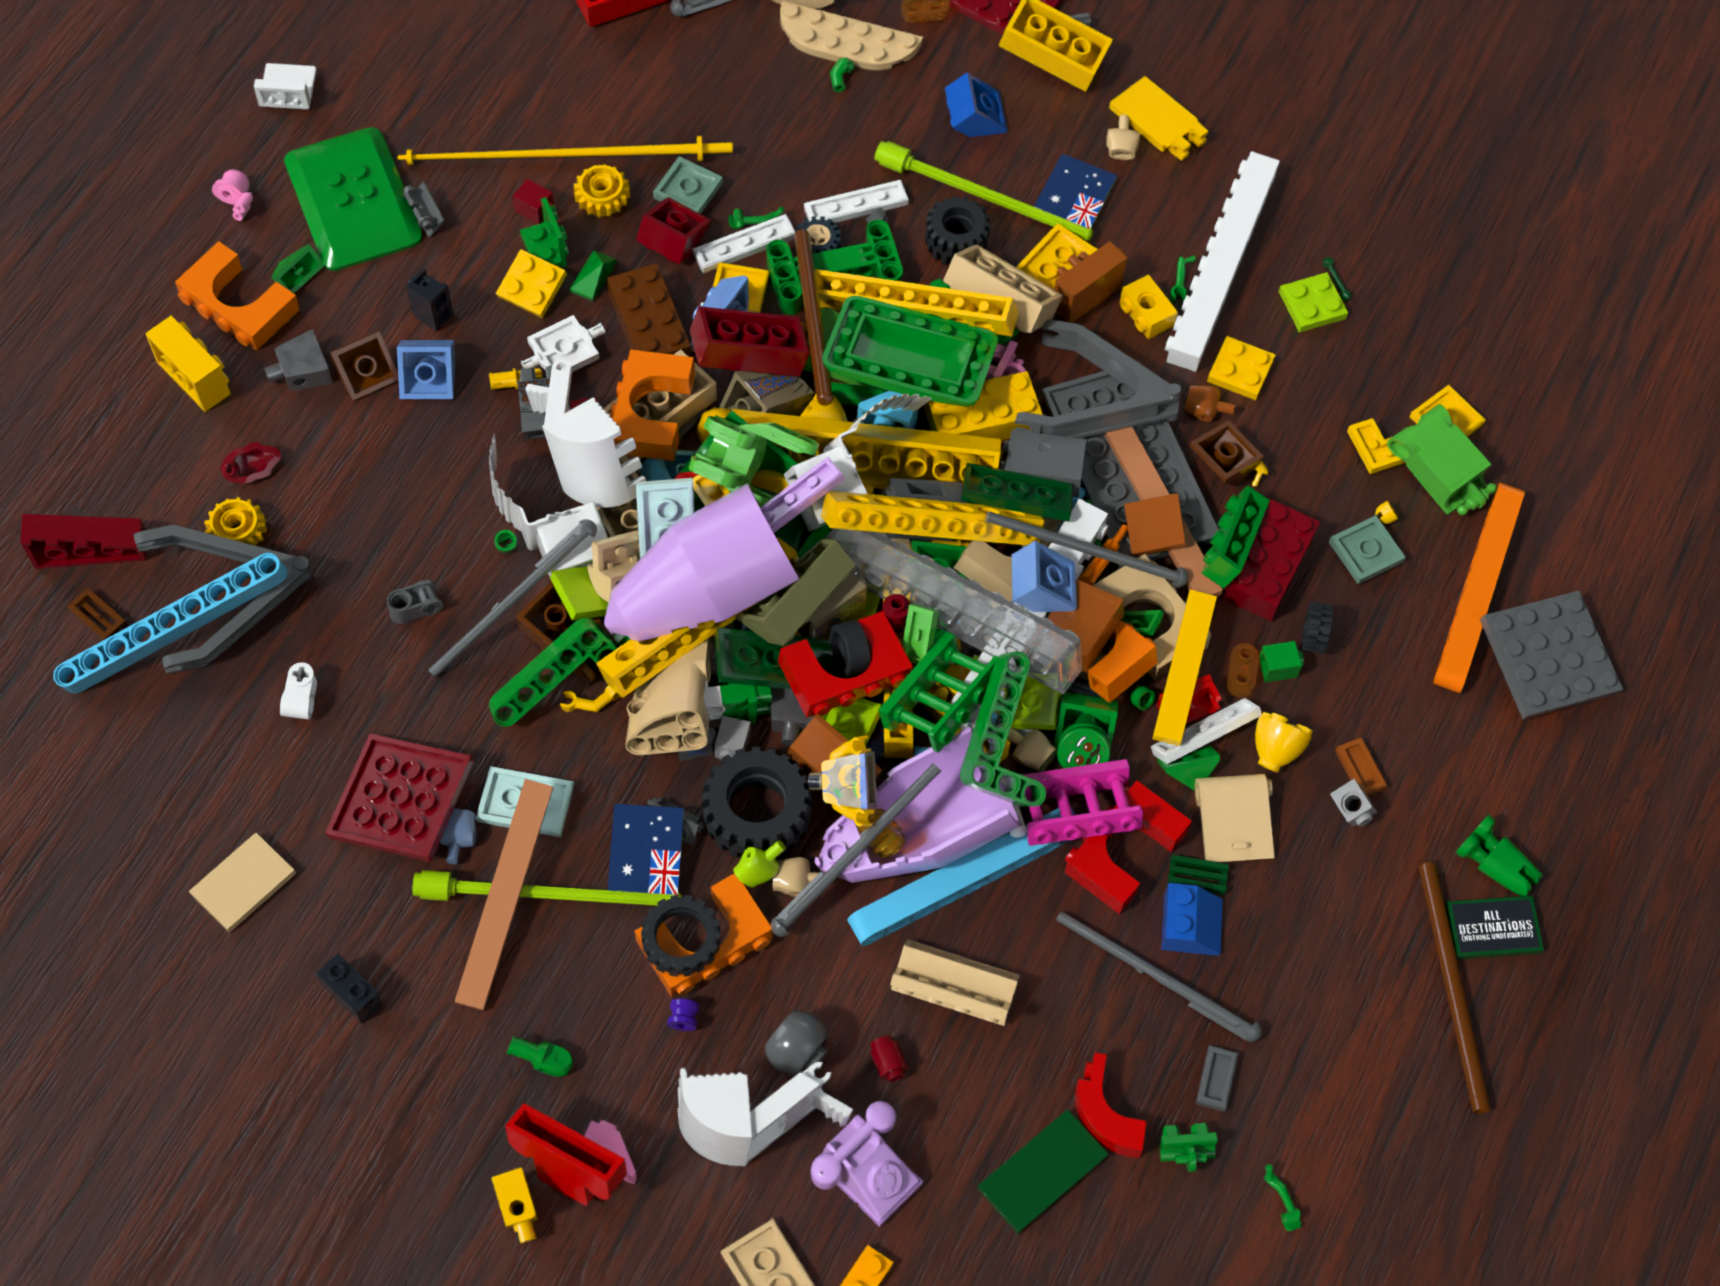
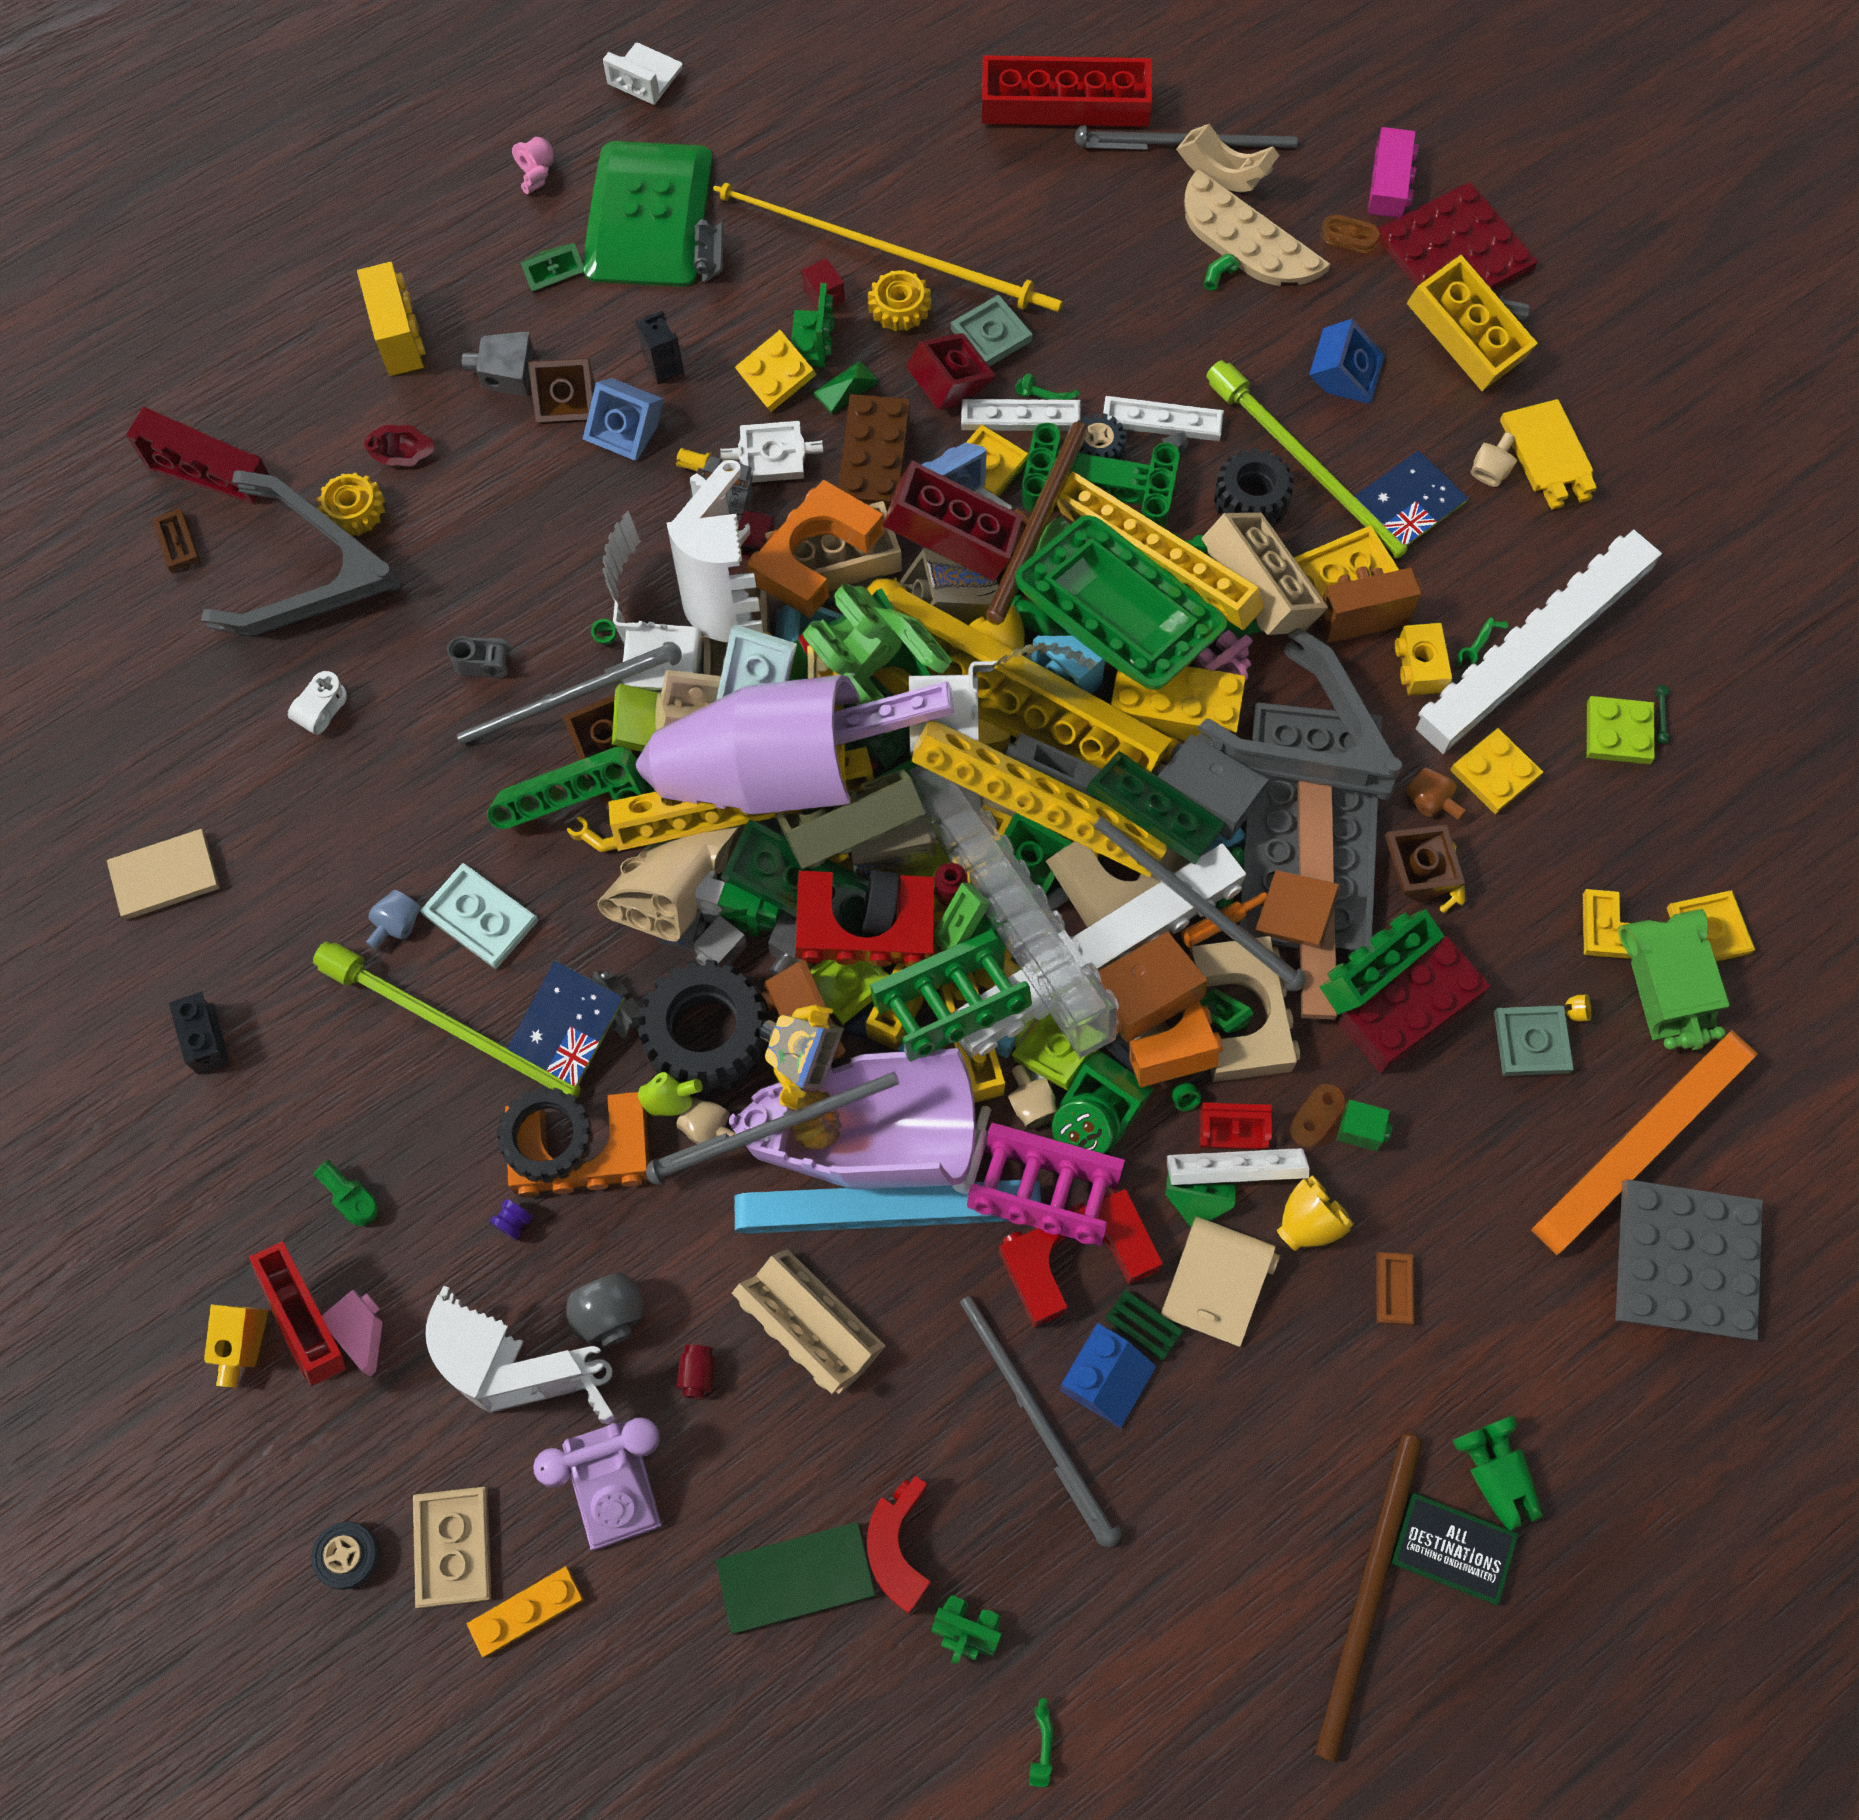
camera: 30 degrees right, 5 degrees up
(157, 623) = (181, 582): medium azure beam -> none
(250, 323) = (479, 302): orange arch -> none
(399, 797) = (353, 856): dark red plate -> none
(504, 895) = (398, 1006): nougat tile -> none
(997, 736) = (981, 1072): green beam -> none
(1043, 579) = (1128, 919): medium blue slope -> none
(1184, 668) = (1245, 1085): yellow tile -> none
(1216, 1078) = (1042, 1568): dark grey tile -> none
(1317, 627) = (1424, 1106): black tyre -> none
(1345, 795) = (1351, 1317): light grey brick -> none

